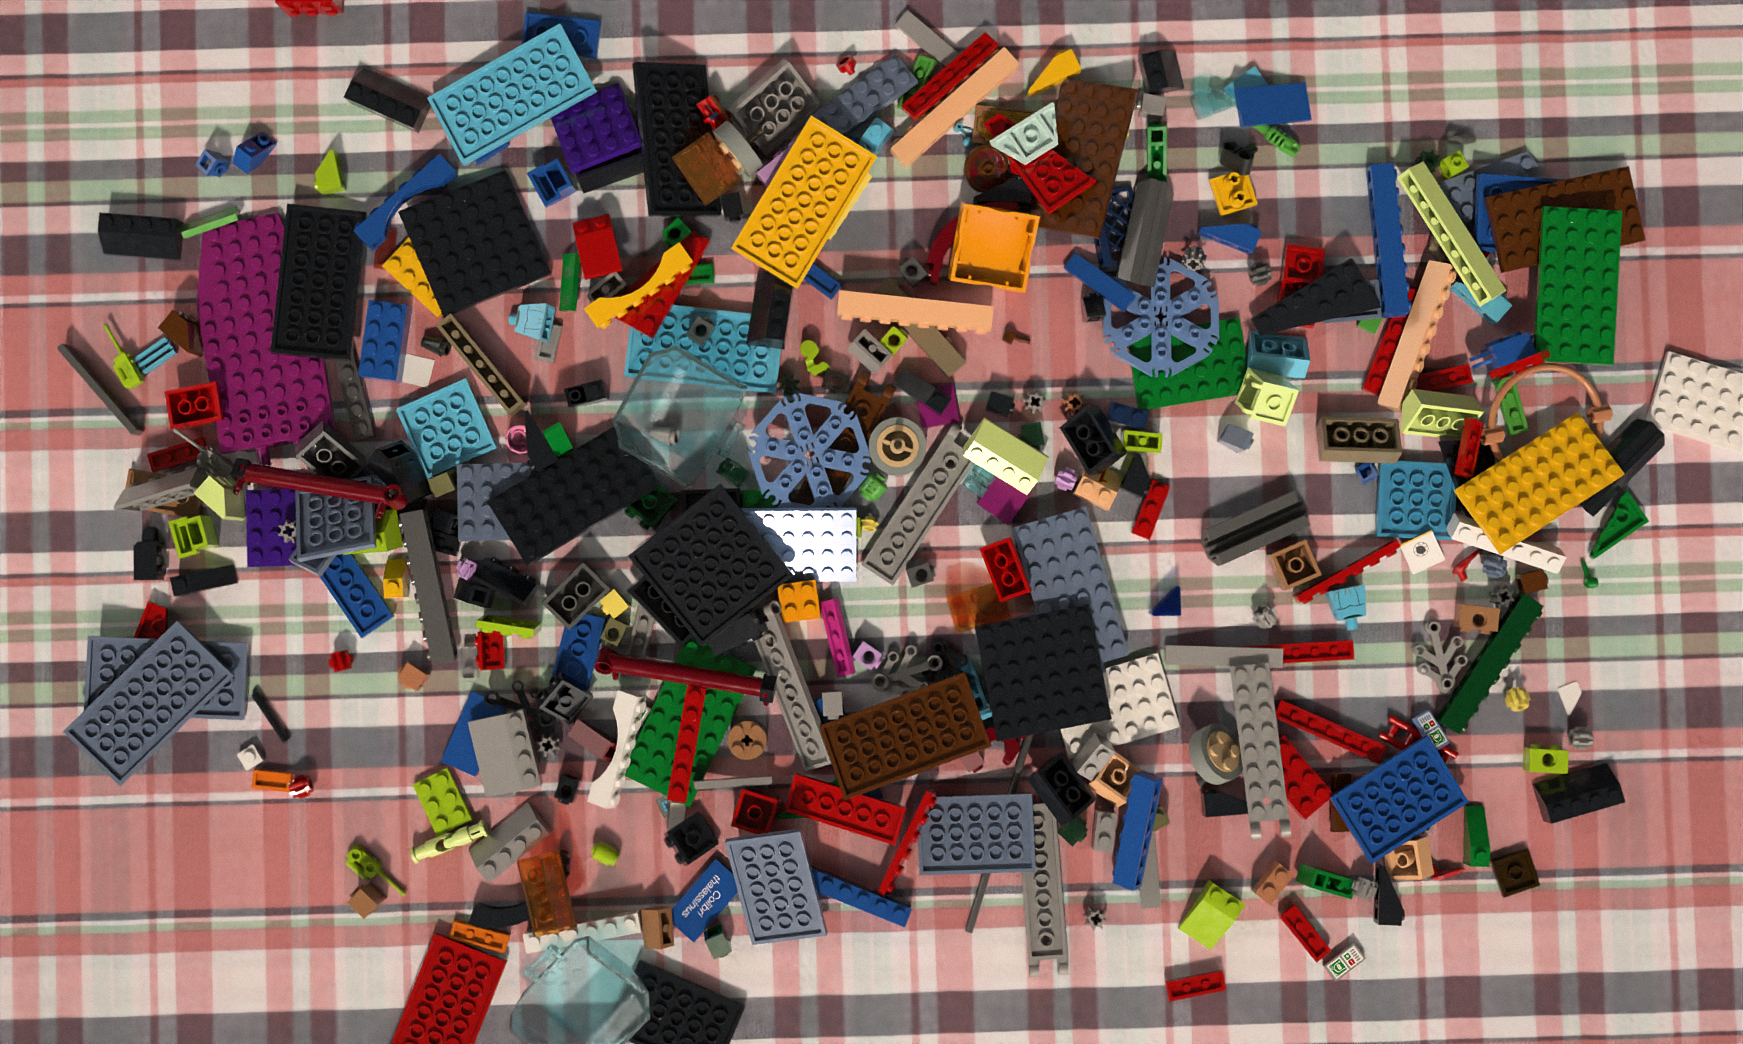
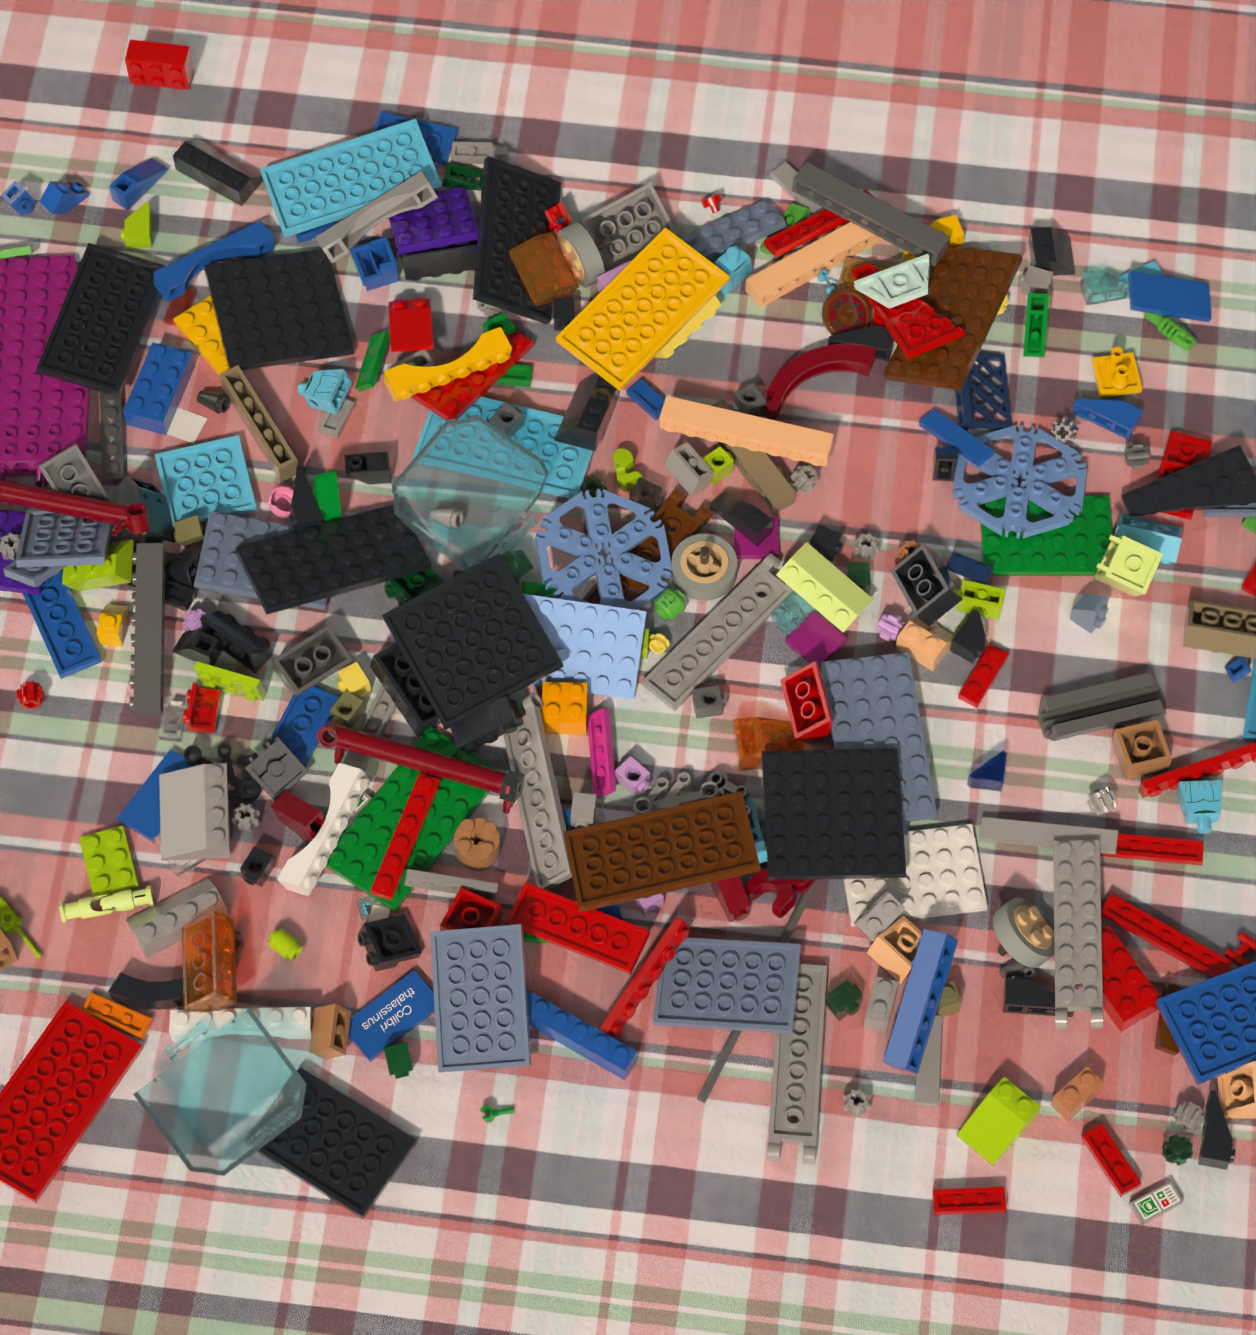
camera: 10 degrees right, 25 degrees down
(317, 125) = (136, 182): none -> blue slope
(412, 676) = (107, 723): nougat brick -> none
(517, 159) = (407, 196): none -> light grey arch
(616, 66) = (458, 170): none -> dark green slope
(623, 44) = (476, 152): none -> light grey hinge
(804, 969) = (494, 1113): none -> green hand
(971, 344) = (804, 478): none -> light grey gear
(993, 247) = (842, 383): light orange tile -> none
(994, 64) = (870, 213): none -> dark grey brick
(1010, 336) = (849, 480): reddish brown hand -> none
(1061, 788) = (837, 945): black brick -> none
(1145, 232) = (1015, 395): dark grey piece -> none
(1238, 158) = (1125, 338): pearl dark grey beam -> none
(1325, 881) = (1142, 1102): green slope -> none
(1357, 918) = (1177, 1149): none -> clear green gear

